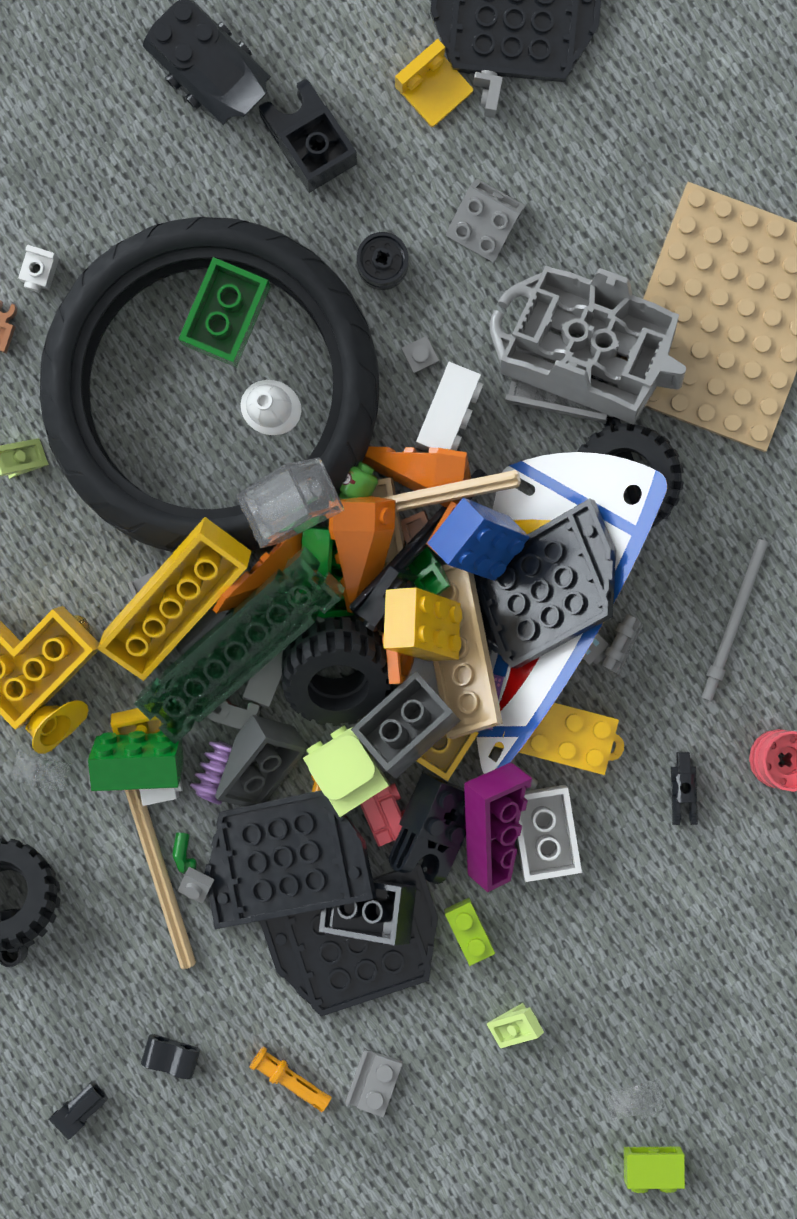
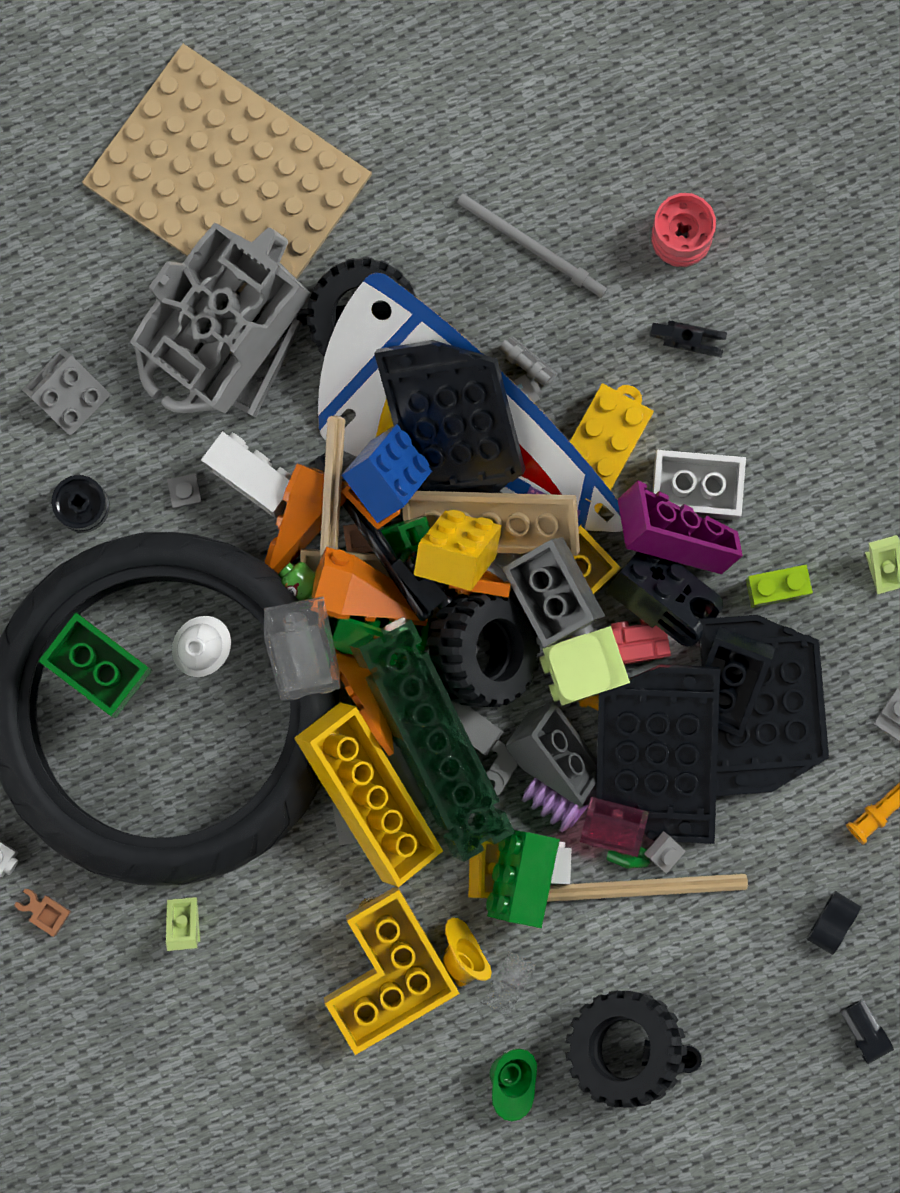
camera: 70 degrees left, 5 degrees down
(206, 833) = (614, 827): none -> clear pink brick

